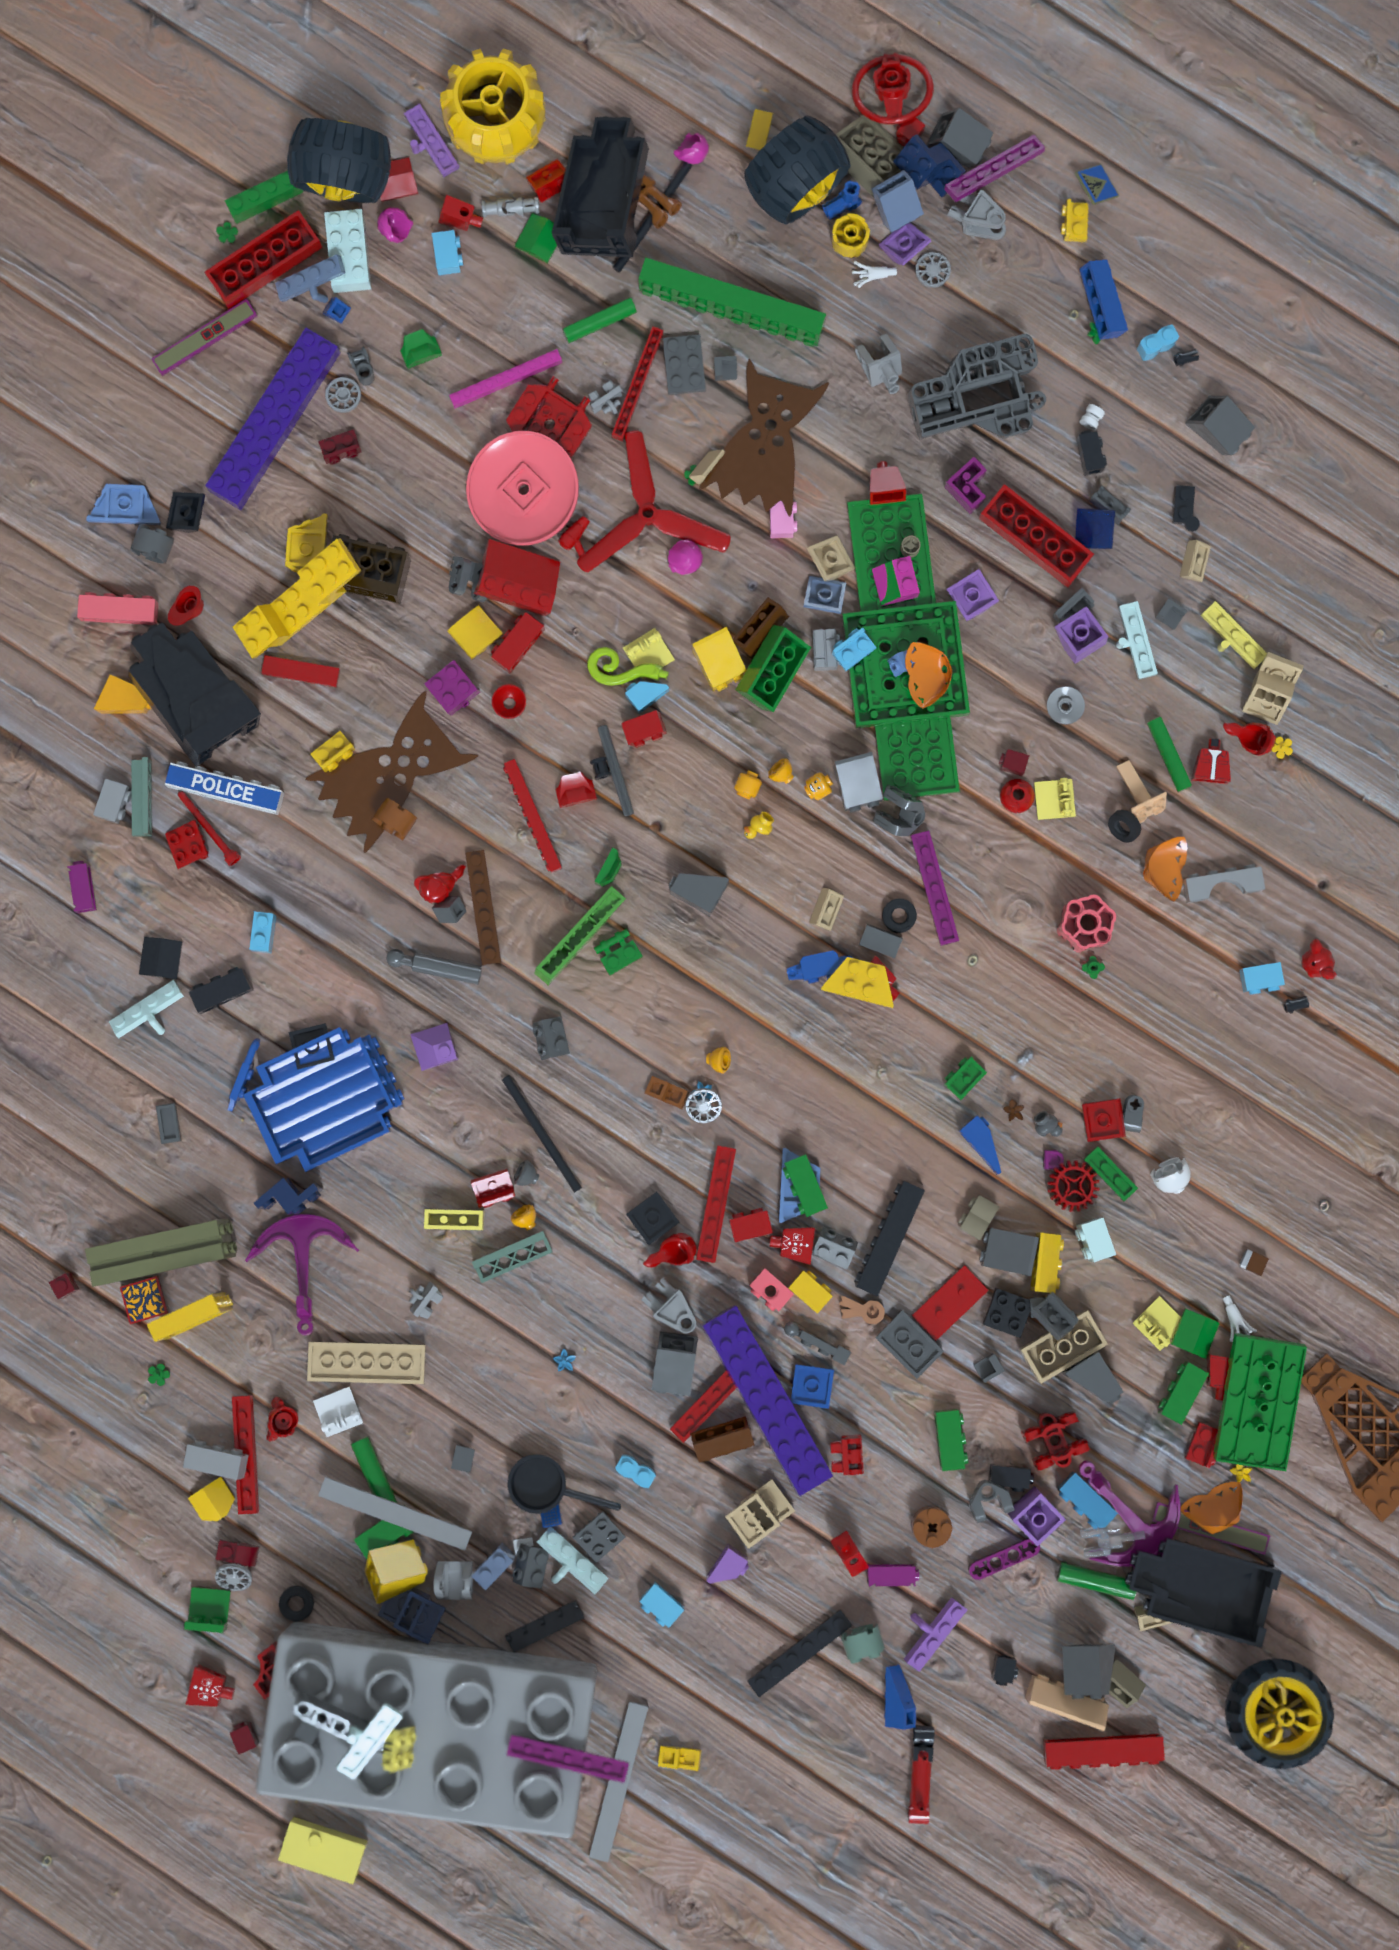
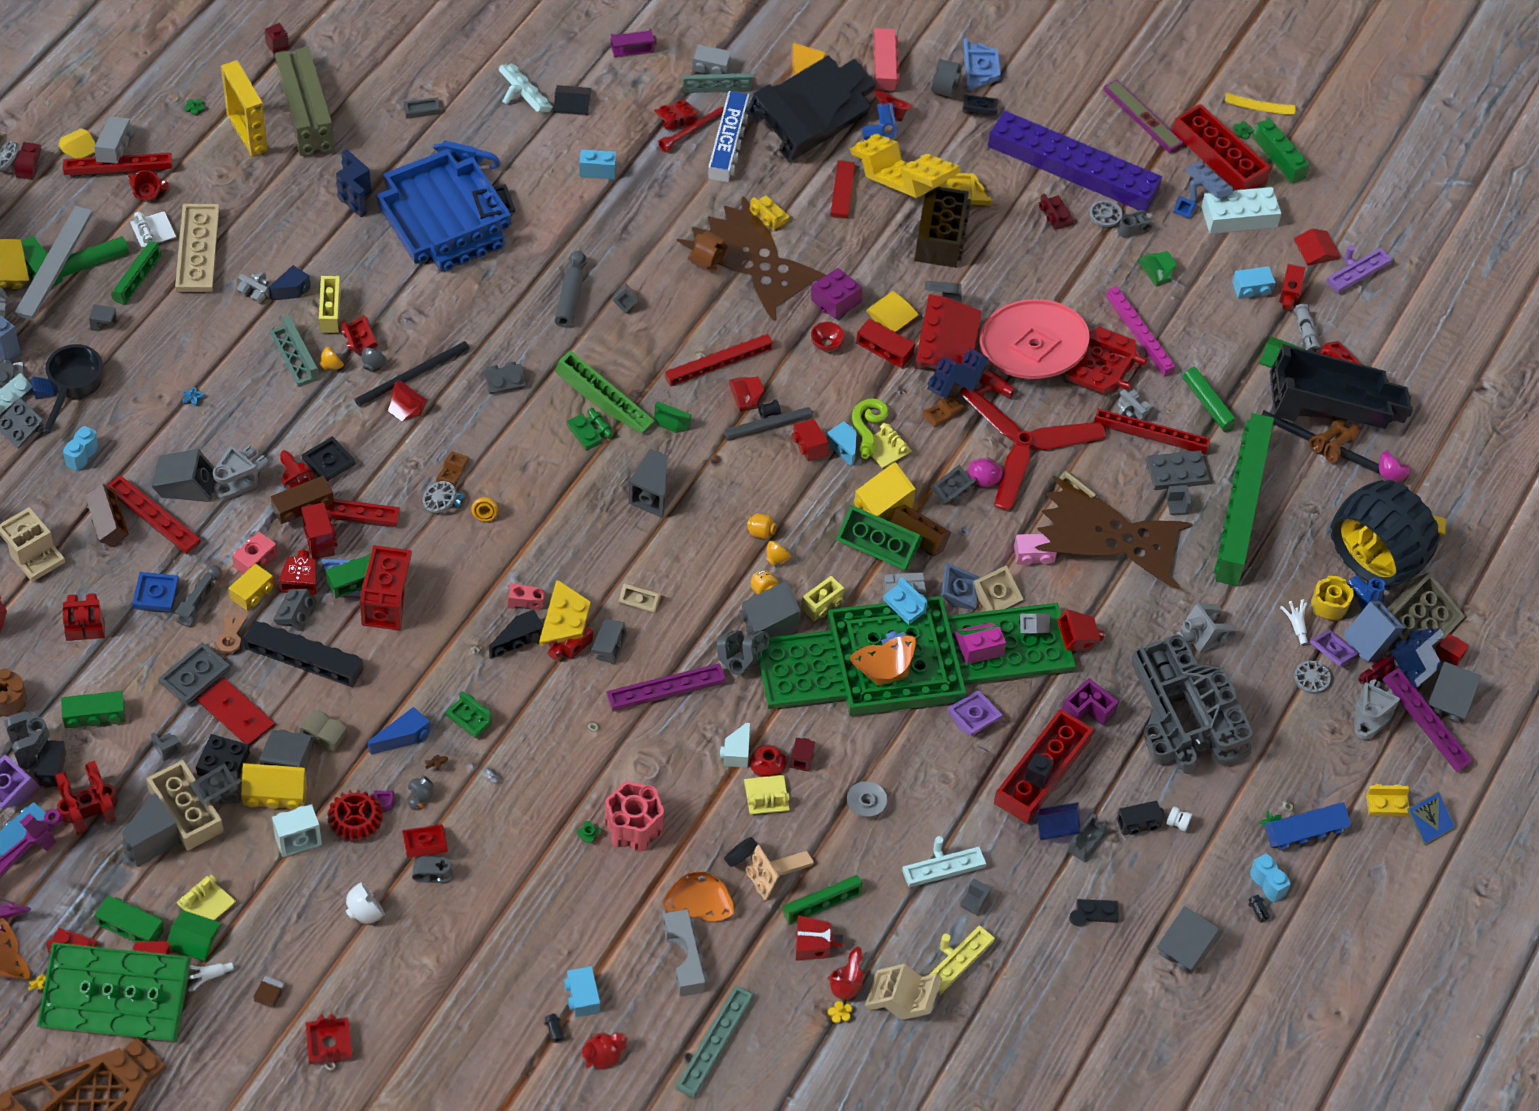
camera: 85 degrees right, 30 degrees down
(143, 1300) = (268, 92): tile -> none
(190, 208) = (1258, 105): none -> yellow sticker
(220, 990) = (543, 137): black brick -> none
(223, 625) = (886, 117): none -> blue piece
(301, 1232) = (321, 197): magenta piece -> none
(339, 160) = (1318, 181): black wheel -> none
(394, 224) = (1272, 242): dark pink hair -> none
(400, 1426) = (136, 273): none -> green brick
(422, 1261) = (290, 284): none -> dark blue slope
(434, 1047) = (494, 293): medium lavender slope -> none
(438, 885) = (646, 286): red piece -> none
(483, 907) = (628, 325): reddish brown plate -> none
(497, 142) = (1411, 312): yellow wheel -> none
(570, 571) = (950, 371): none -> dark blue bracket
(581, 1140) = (406, 402): none -> red slope
(604, 591) = (944, 411): none -> dark orange slope
(702, 589) = (952, 484): none -> dark grey bracket
(714, 1242) = (289, 502): none -> reddish brown brick
(759, 823) = (721, 536): yellow animal -> none
(766, 1400) = (145, 546): dark purple brick -> none
(816, 967) = (581, 581): blue hinge -> none
(822, 1156) = (384, 588): none -> red bracket
(827, 1021) = (525, 596): none -> coral leg
(840, 729) = (822, 598): none -> light yellow brick
(868, 1026) = (519, 632): none -> black slope
(877, 526) = (1035, 623): none -> light grey panel
(892, 86) = (1494, 624): red piece -> none
(899, 927) = (636, 669): black tyre -> none
(910, 546) = (1017, 651): dark tan wheel -> none
(937, 211) = (1380, 670): none -> dark red hinge
(1005, 823) = (736, 748): none -> light aqua slope
(1057, 539) = (1039, 770): none -> black brick
(1073, 605) = (970, 806): dark grey hinge -> none
(1081, 635) = (942, 808): medium lavender slope -> none
(1110, 1174) = (367, 851): green plate -> none
(1195, 560) = (1037, 924): tan slope -> none
(1309, 861) = (714, 1042): none -> sand green tile
(1318, 1211) = (328, 1027): none -> red piece

